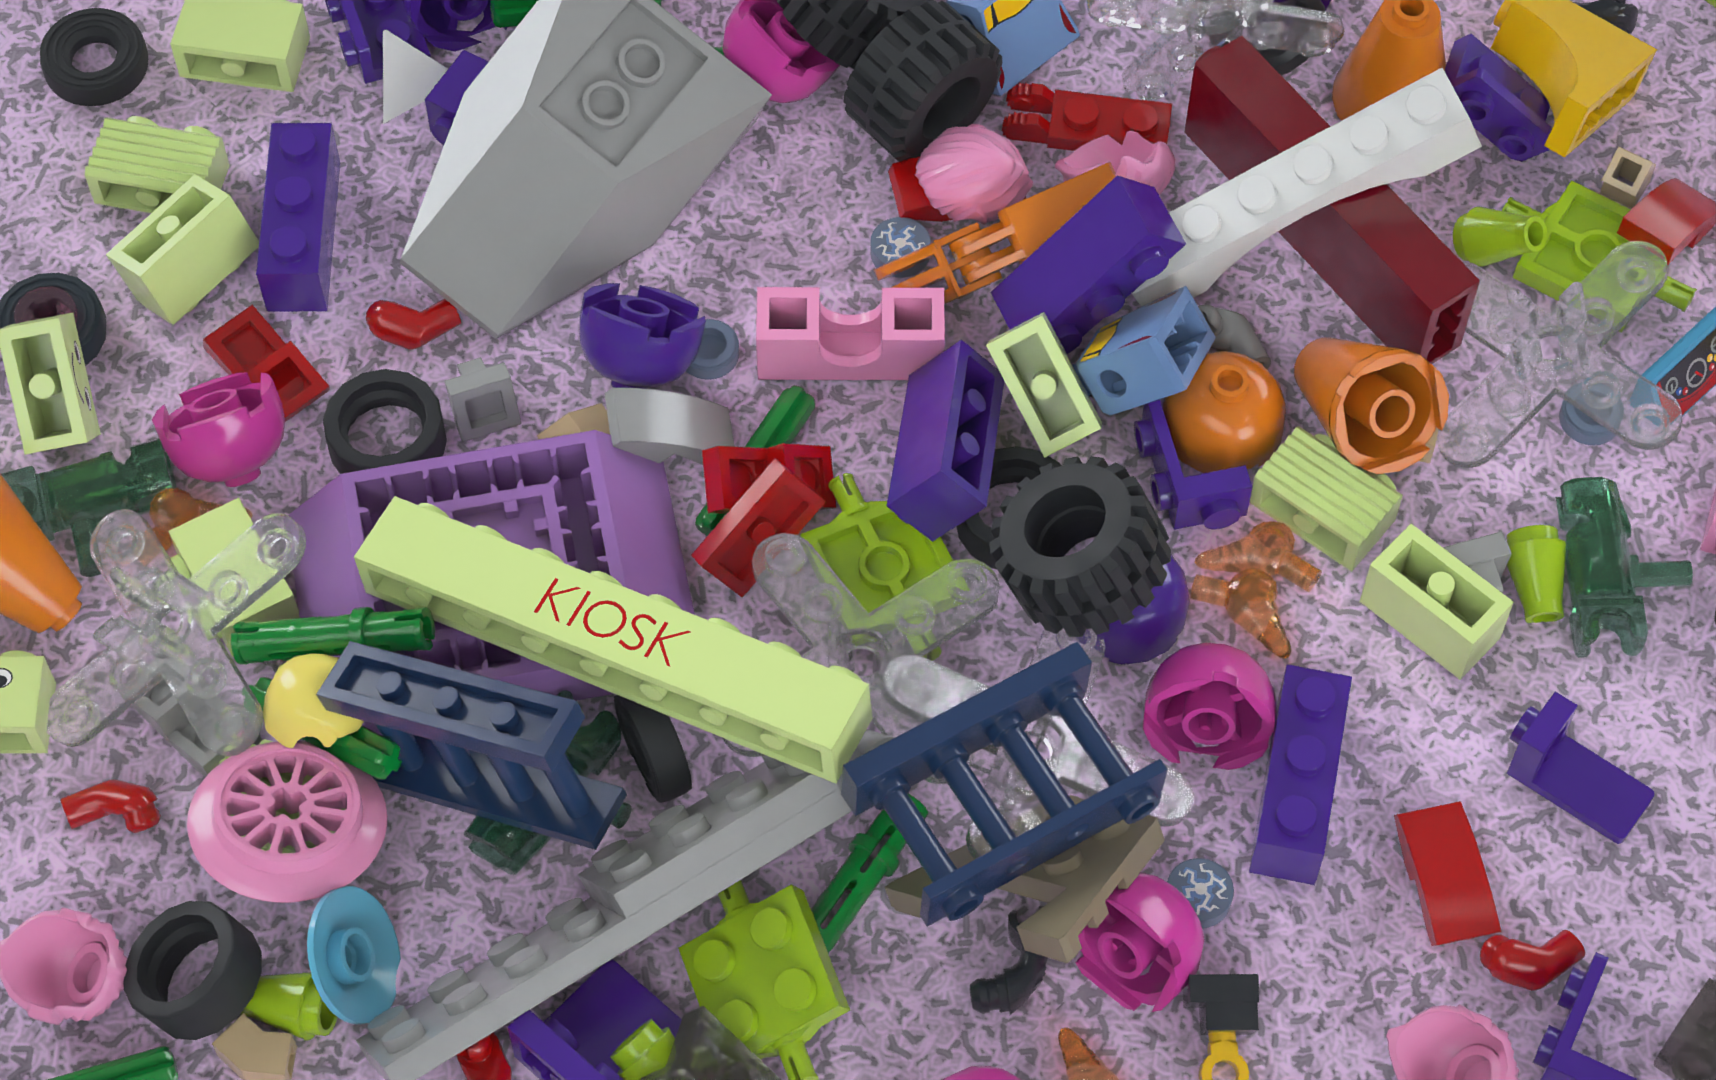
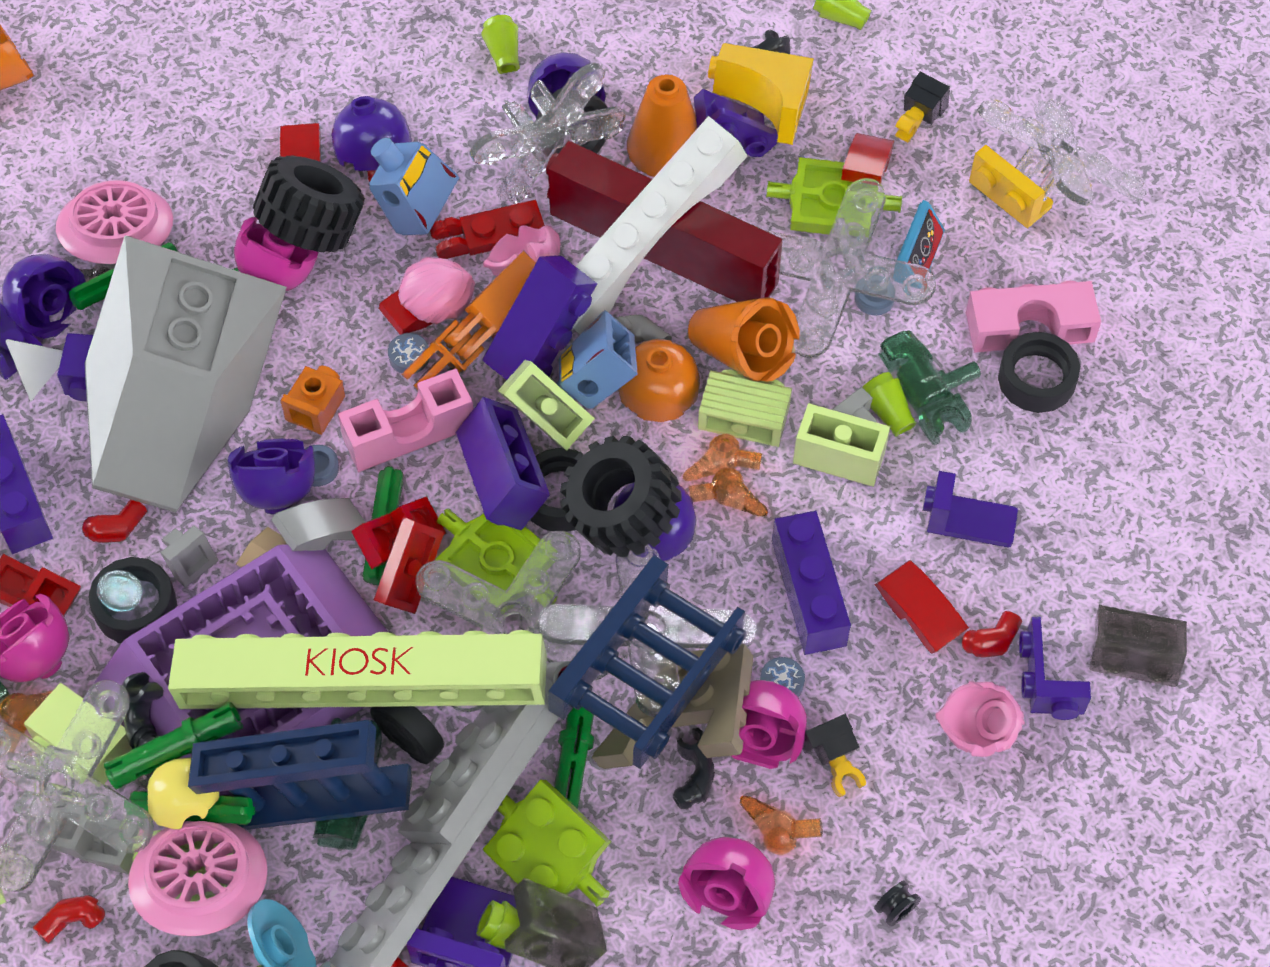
camera: 25 degrees left, 0 degrees up
(322, 559) = (137, 720): none -> black piece
(369, 409) = (119, 590): none -> clear light blue piece
(743, 258) = (314, 408): none -> orange brick
(922, 78) = (378, 242): black tyre -> none
(1205, 498) = (674, 437): dark purple bracket -> none
(1210, 698) = (744, 557): dark pink cylinder -> none
(1495, 235) = (772, 207): lime cone -> none
(1631, 168) = (830, 136): tan piece -> none

